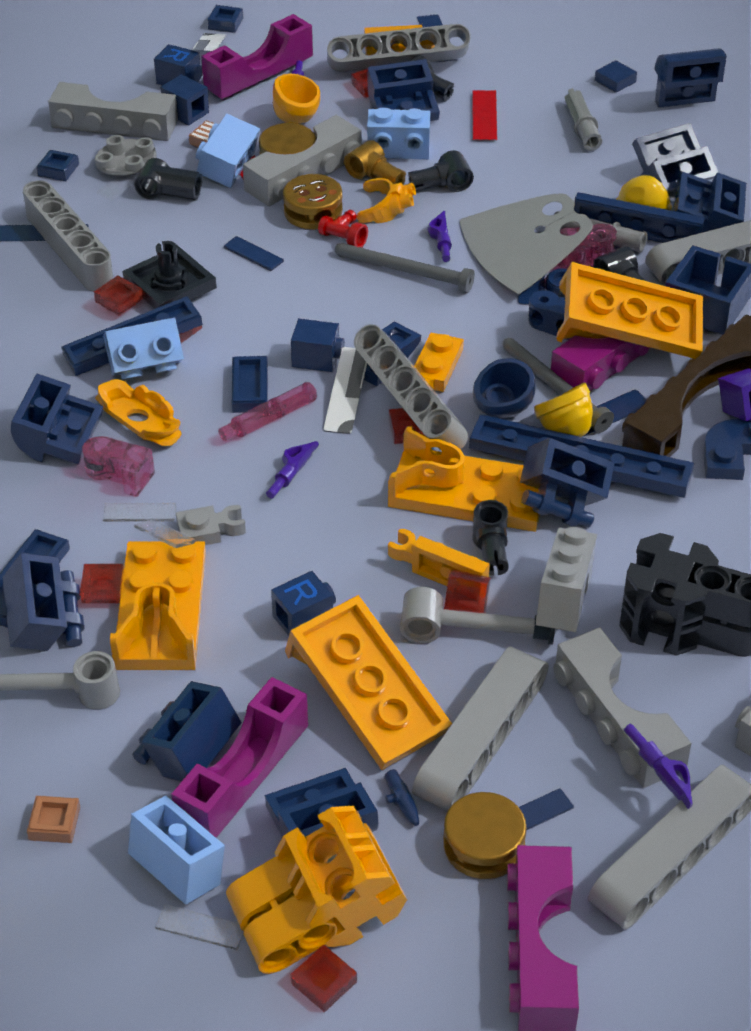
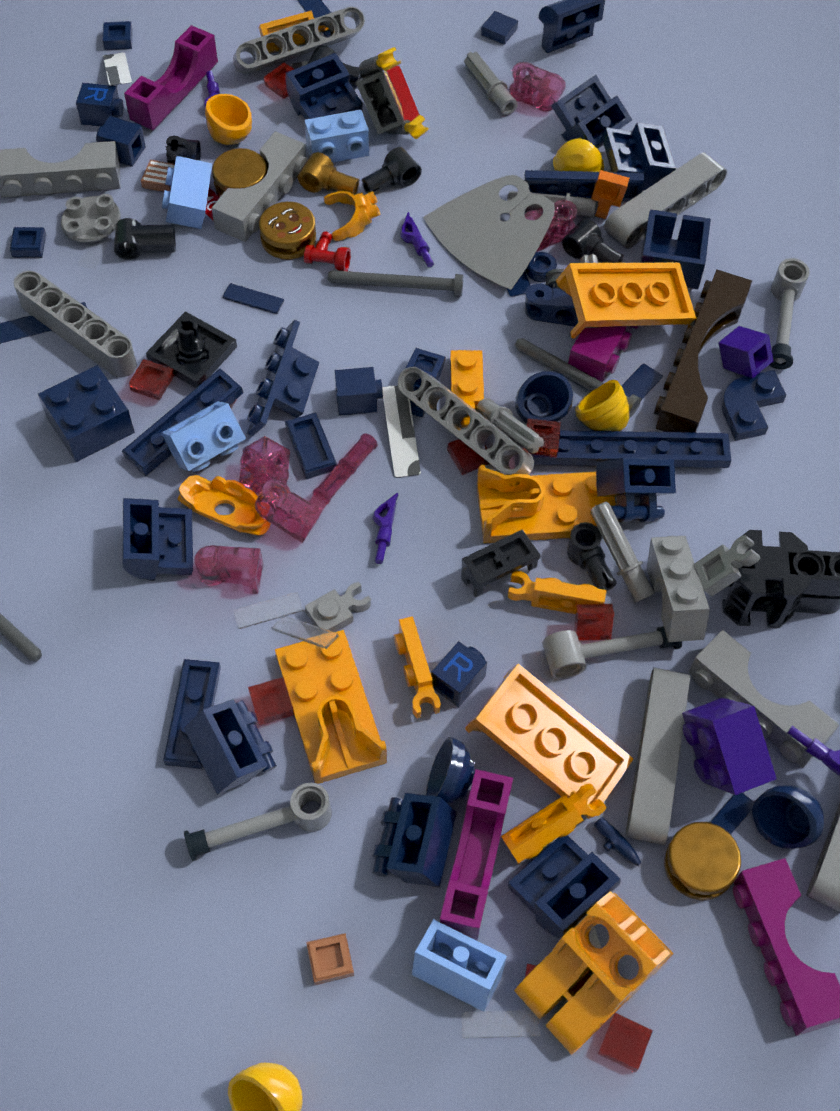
camera: 20 degrees left, 15 degrees up
(41, 307) = (86, 413): none -> dark blue brick
(191, 385) = (263, 462): none -> clear pink brick
(197, 425) = (288, 509): none -> clear pink leg
(239, 110) = (182, 147): none -> black pin
(250, 678) = (451, 771): none -> dark blue piece
(251, 325) = (287, 380): none -> dark blue bracket
(258, 594) = (417, 669): none -> light orange plate
(340, 753) = (551, 823): none -> light orange plate
(390, 513) = (498, 561): none -> black hinge
(456, 400) = (504, 420): none -> light grey axle
(457, 104) = (382, 98): none -> dark grey torso
(487, 420) = (549, 432): none -> clear red tile
(524, 537) = (621, 552): none -> light grey axle
(550, 723) = (728, 746): none -> dark purple brick
(595, 814) = (788, 817): none -> dark blue hat
(614, 558) = (722, 565): none -> light grey plate
(626, 126) = (538, 87): none -> clear pink piece
(659, 224) = (608, 191): none -> orange plate

